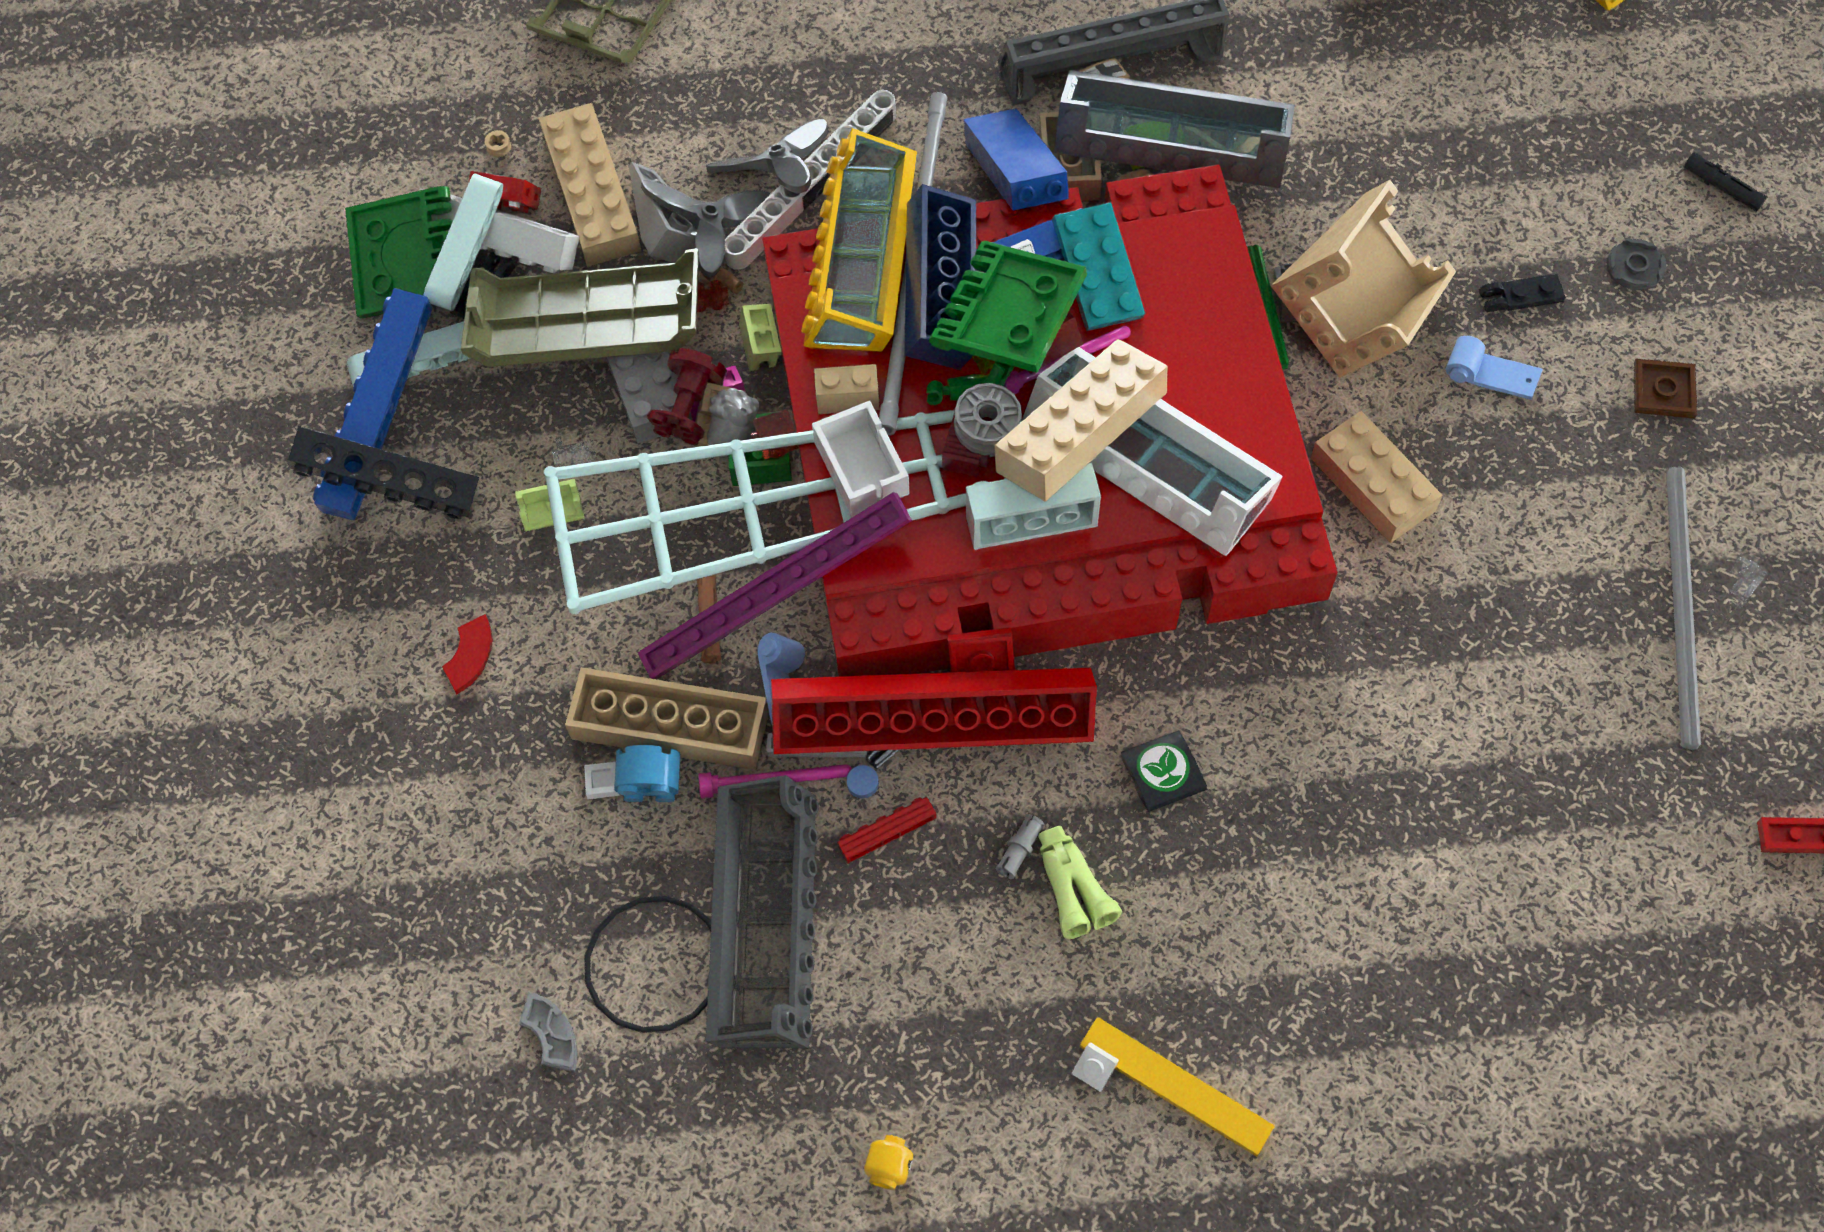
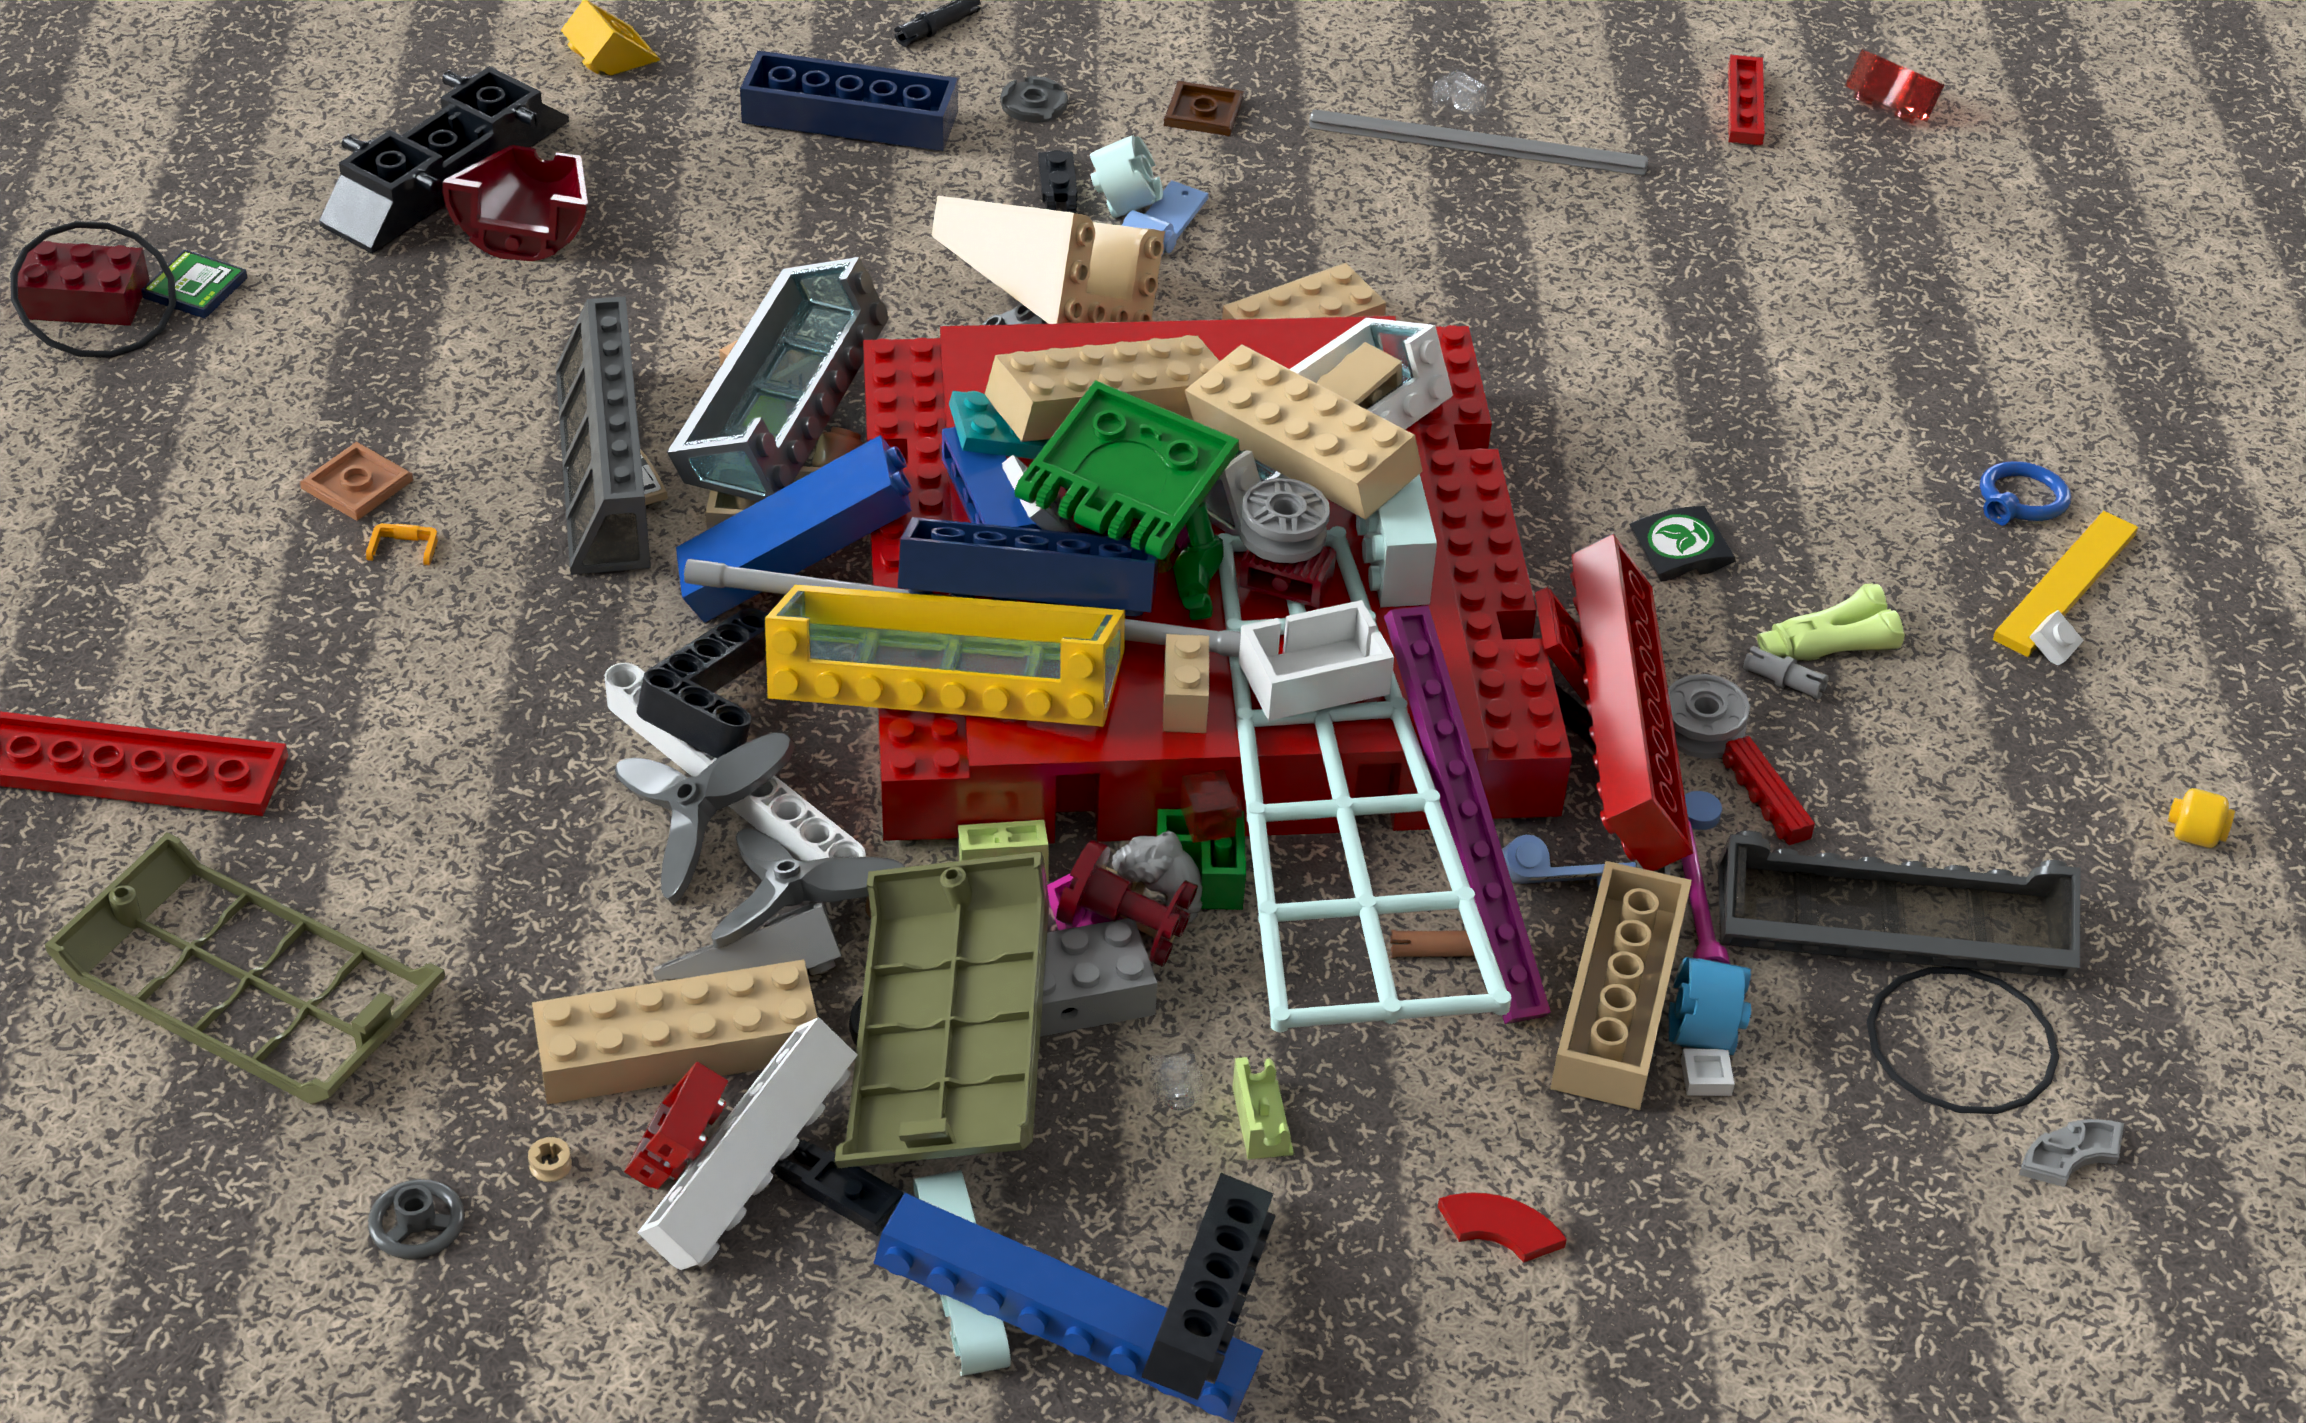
camera: 90 degrees left, 20 degrees down
(395, 245) = (770, 1273): green hinge -> none
(454, 86) = (415, 1214): none -> dark grey piece
(463, 242) = (799, 1148): light aqua beam -> none
(883, 127) = (681, 688): none -> black beam
(956, 764) = (1707, 714): none -> light grey wheel
(1141, 299) = (1042, 387): none -> tan brick
(1195, 474) = (1364, 375): none -> tan brick
(1262, 1037) = (2007, 504): none -> blue piece
(1522, 329) = (1126, 176): none -> light aqua brick
(1574, 134) = (849, 100): none -> dark blue brick

